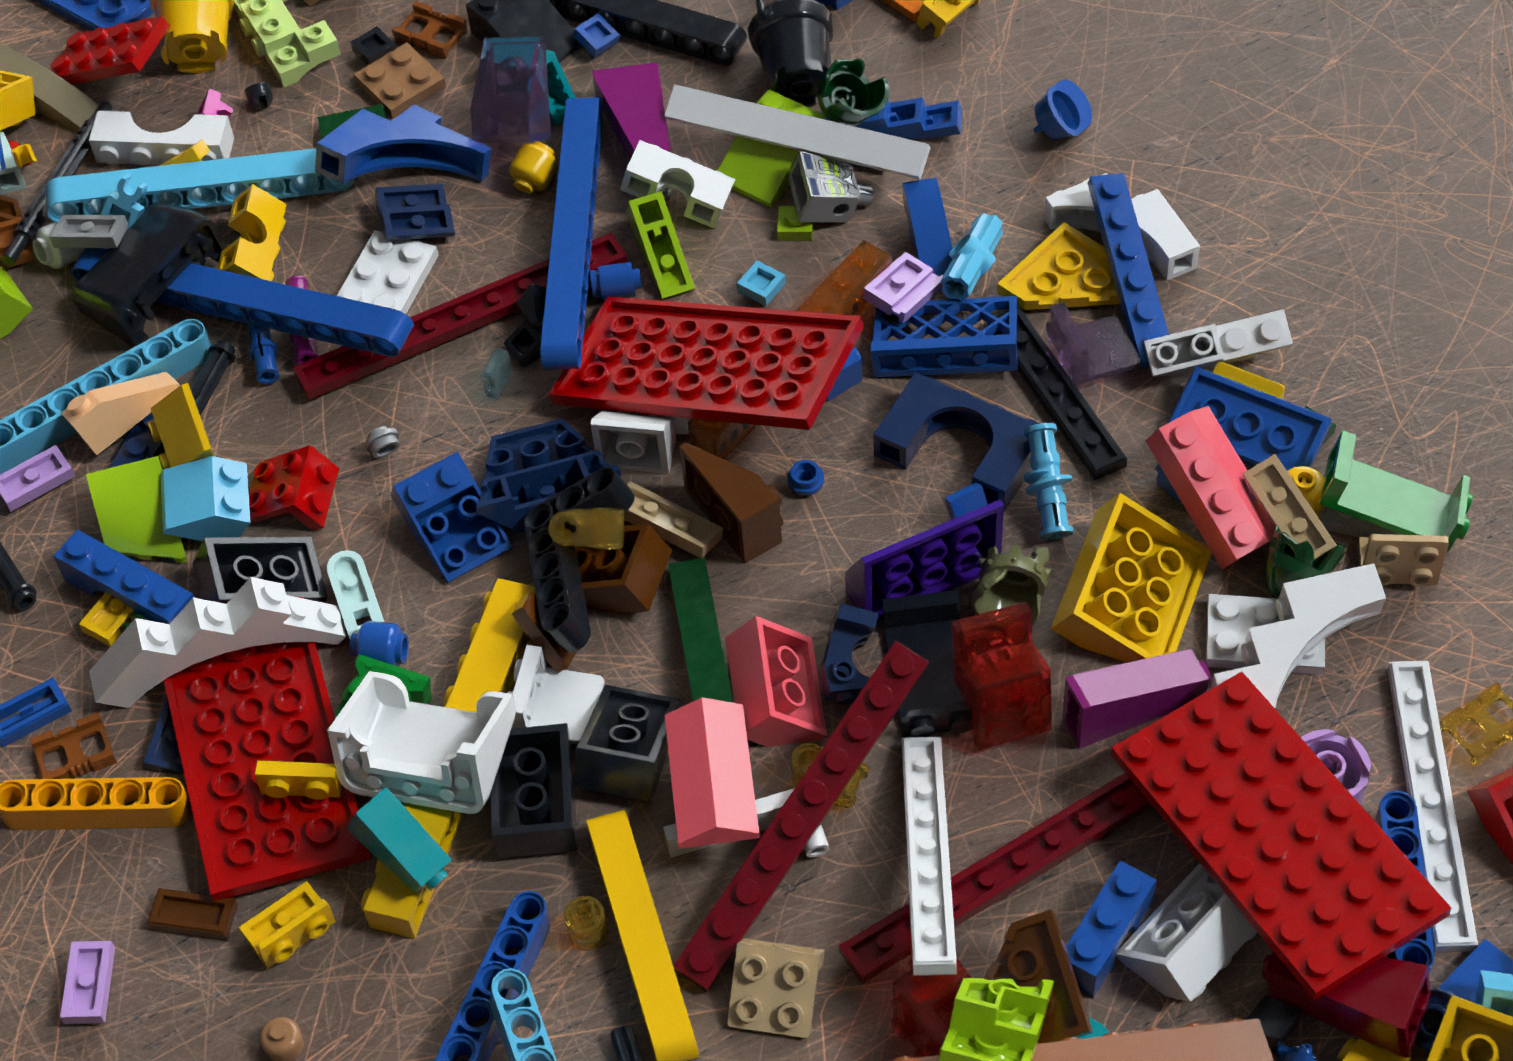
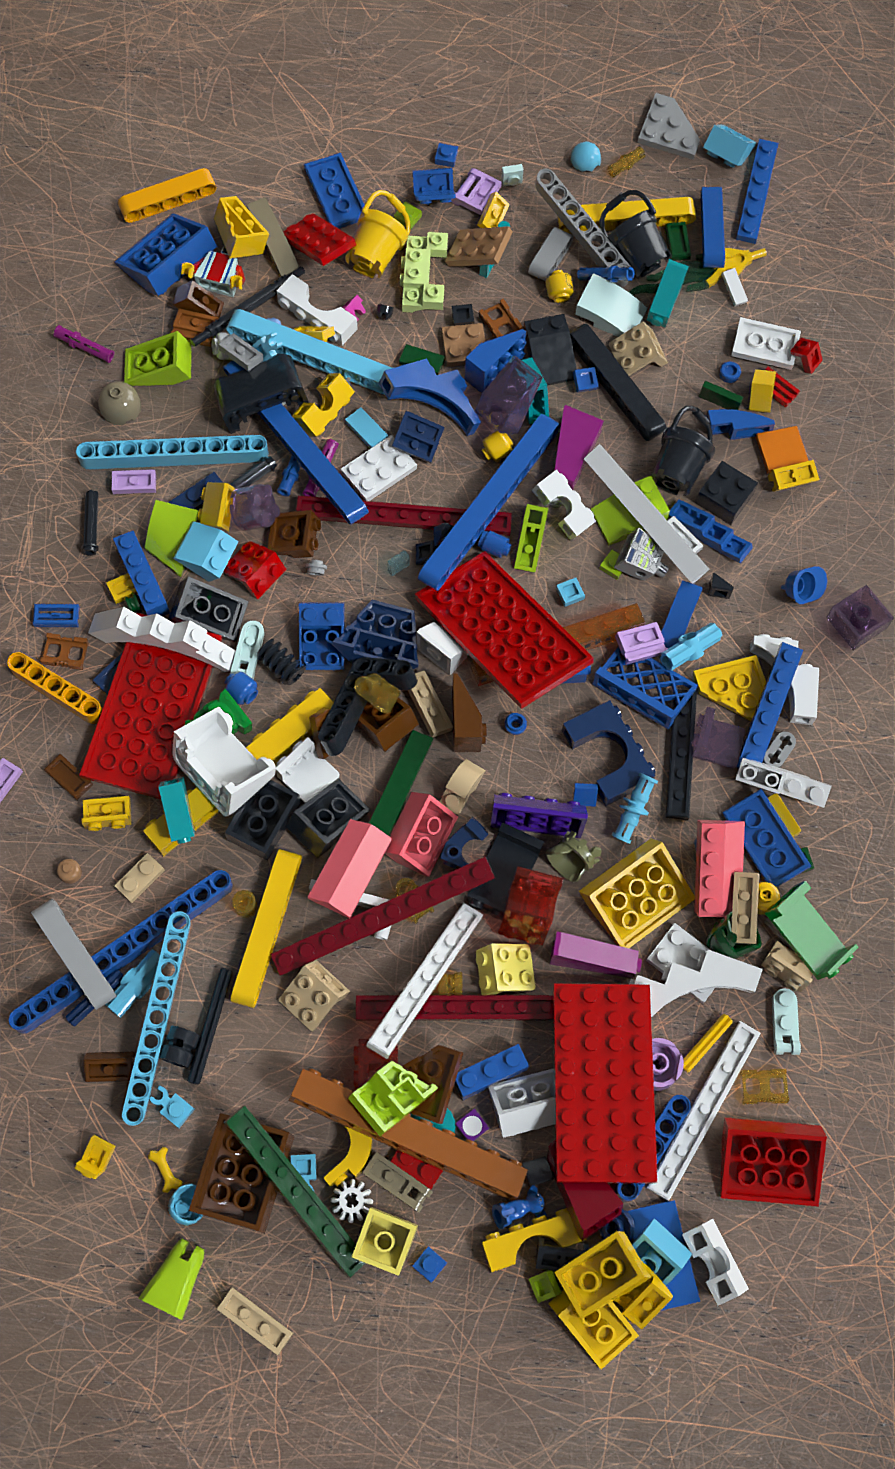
camera: 25 degrees right, 15 degrees up
(112, 410) = (194, 467): light nougat slope -> none
(240, 407) = (254, 507): none -> clear purple brick
(297, 779) = (147, 736): yellow plate -> none
(321, 414) = (295, 534): none -> reddish brown plate
(331, 242) = (366, 428): none -> medium azure tile
(398, 986) = (139, 878): none -> tan plate
(415, 584) = (279, 663): none -> black piece
(452, 68) = (491, 357): none -> blue slope
(791, 591) = (461, 785): none -> tan brick
(848, 95) = (694, 512): dark green helmet -> none
(887, 54) = (726, 492): none -> black brick
(955, 172) = (719, 587): none -> black slope
(966, 848) = (455, 984): none -> clear yellow wheel
(1021, 785) = (505, 968): none -> light yellow bracket
(1133, 1015) = (472, 1125): none -> tile
(1162, 108) = (860, 617): none -> clear purple brick
(1173, 317) = (774, 748): none -> light grey beam
(1368, 708) = (706, 1042): none -> yellow axle
(1449, 630) = (785, 1022): none -> light aqua plate

